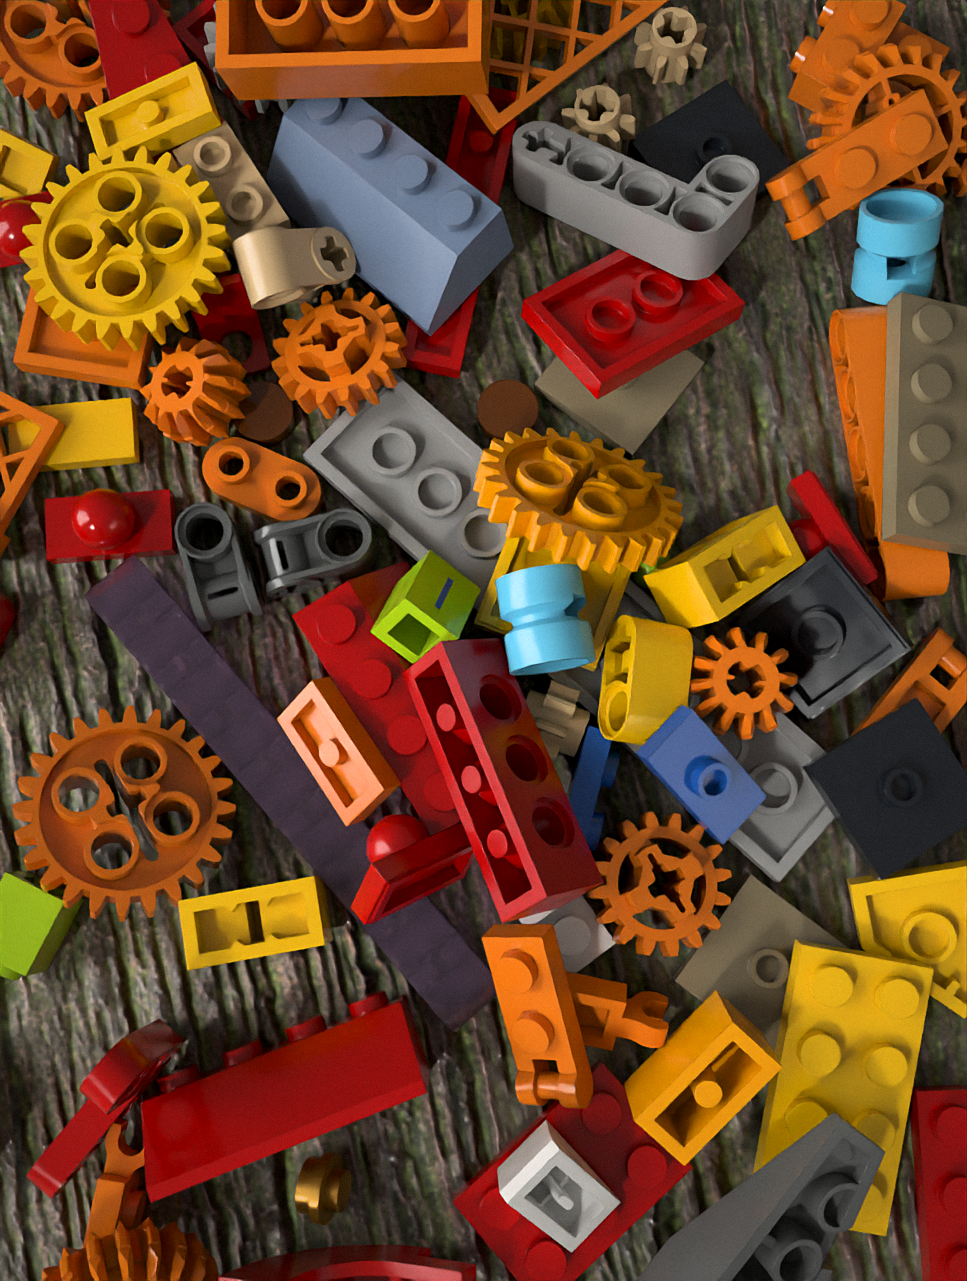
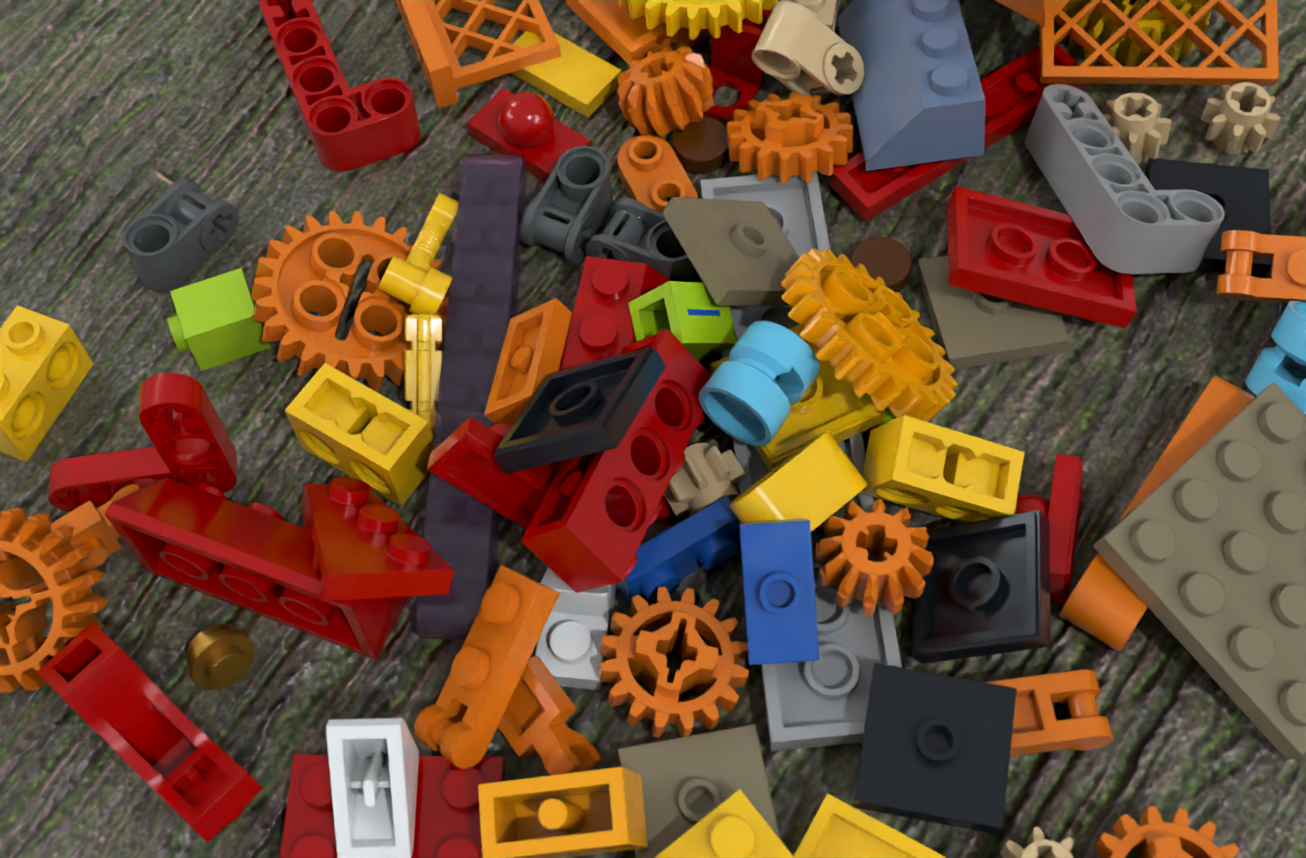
camera: 50 degrees right, 20 degrees down
(167, 758) = (415, 279): none -> yellow brick
(250, 826) = (423, 365): none -> yellow axle
(367, 1018) = (366, 546): none -> red wing
(411, 509) = (733, 248): none -> dark tan plate
(454, 781) = (580, 411): none -> black plate

